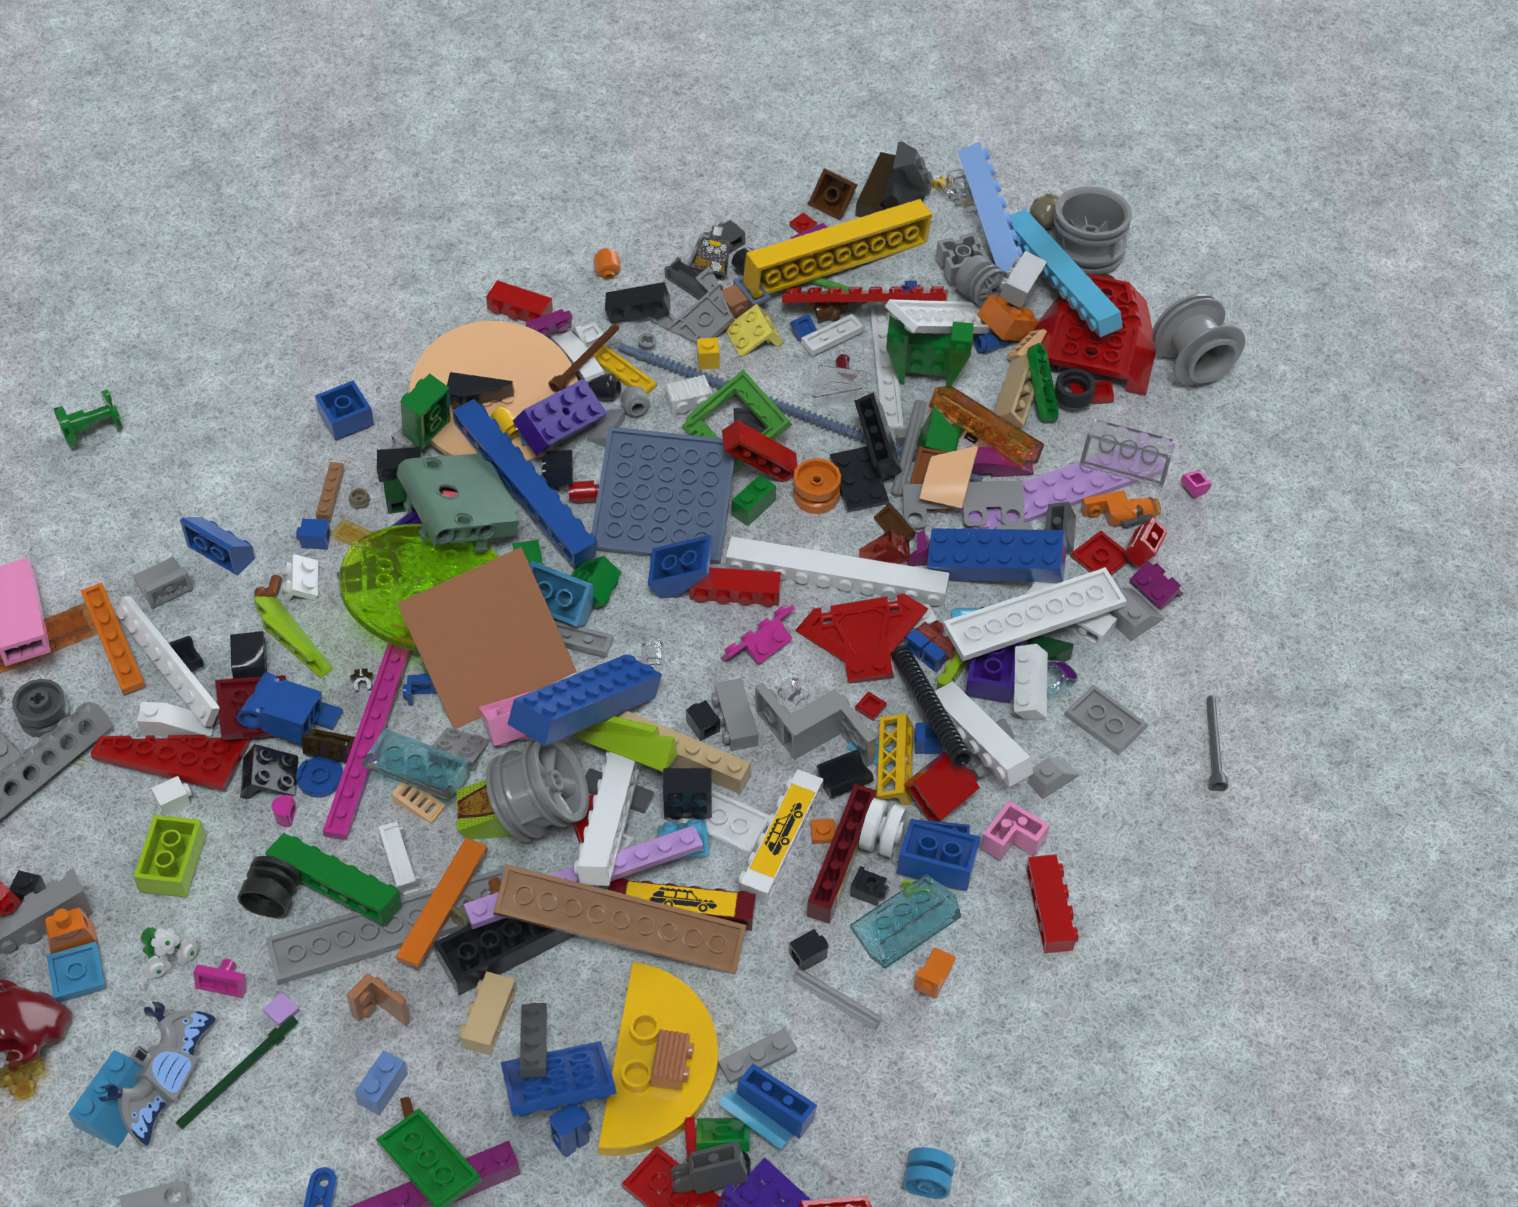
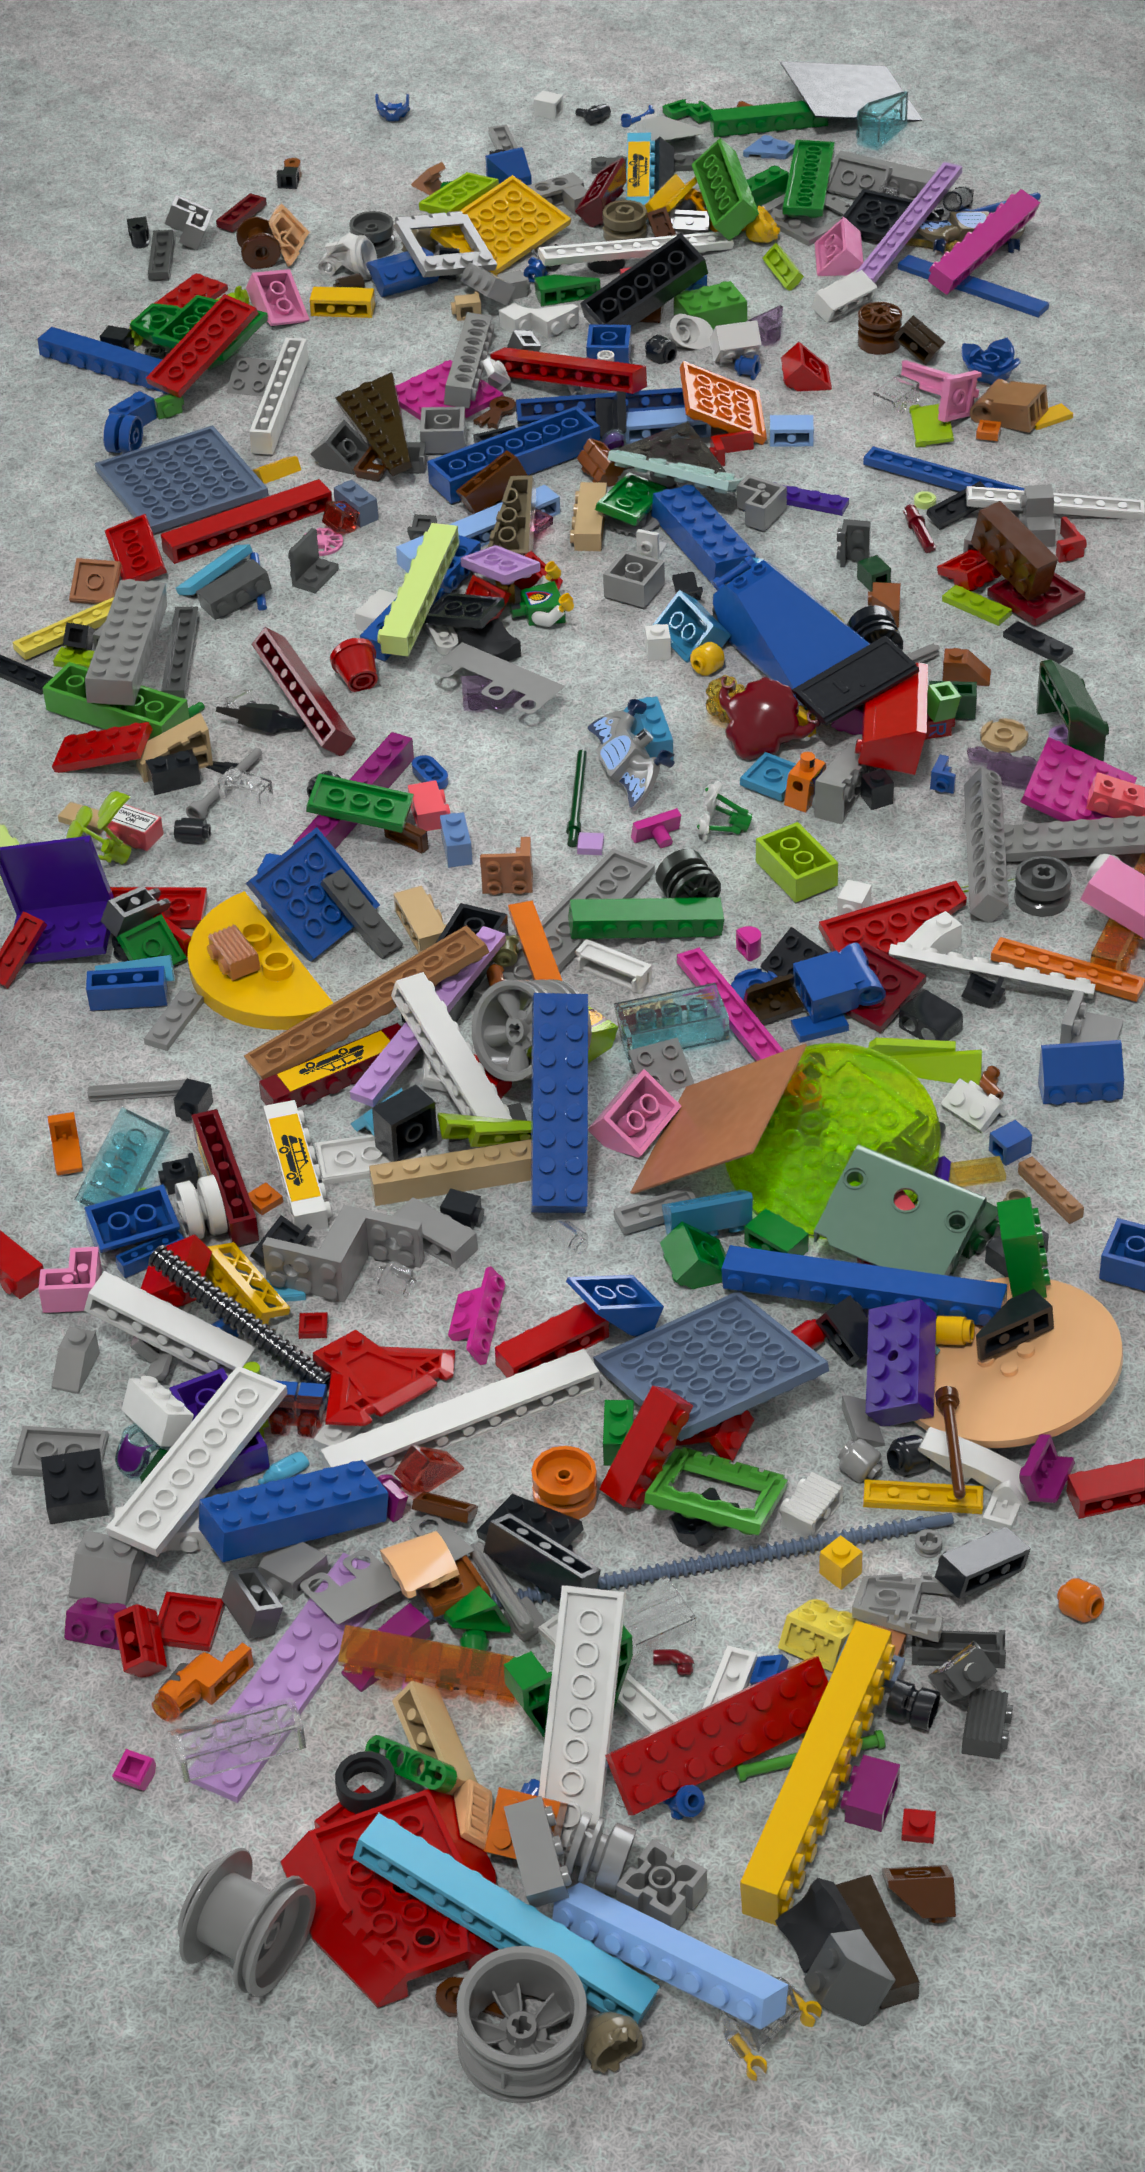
camera: 145 degrees right, 10 degrees down
(361, 1149) = (428, 805): none -> coral brick
(1117, 672) = (74, 1486): none -> black brick

